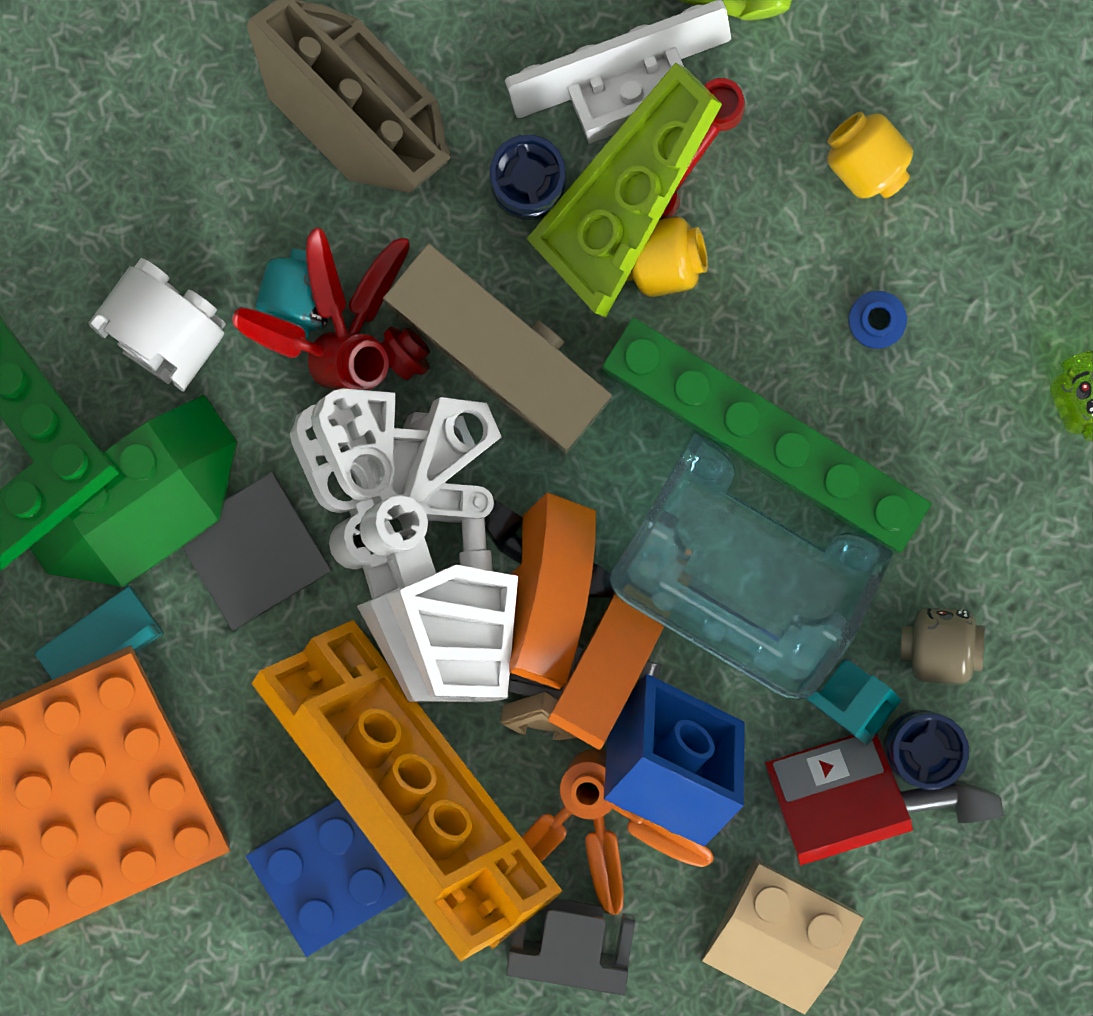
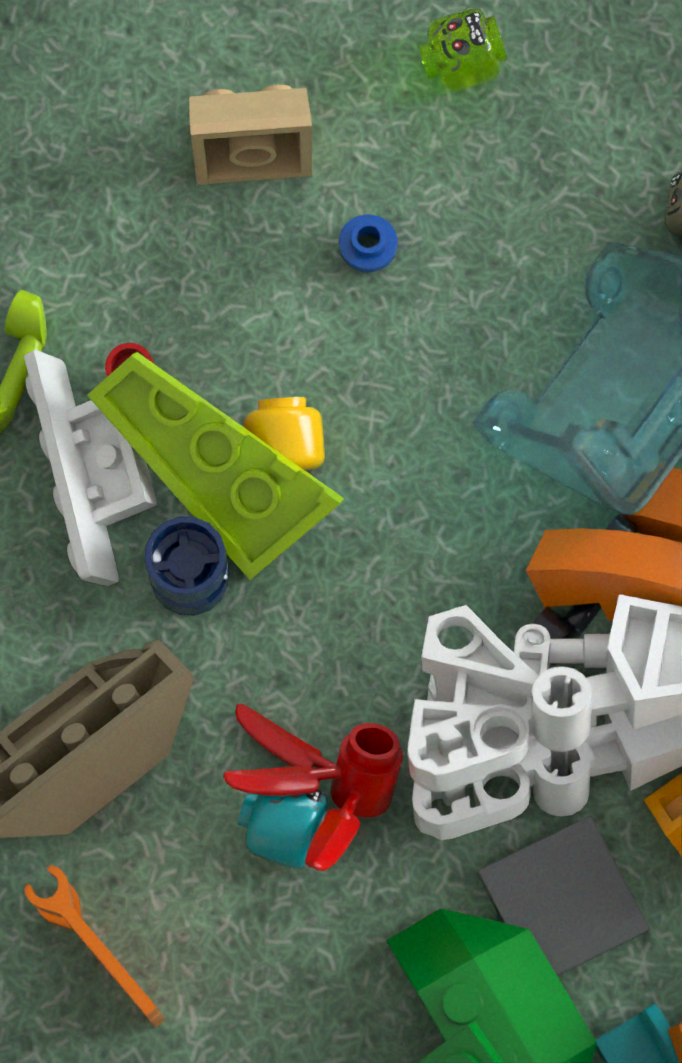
camera: 85 degrees left, 15 degrees down
(158, 326) = (308, 971): white brick -> none
(163, 133) = (65, 911): none -> orange flag
(406, 352) = (358, 710): red plate -> none
(498, 348) = (370, 605): dark tan brick -> none
(765, 436) = (478, 358): green brick -> none
(869, 155) = (200, 232): yellow head -> none
(978, 191) = (251, 135): none -> tan slope

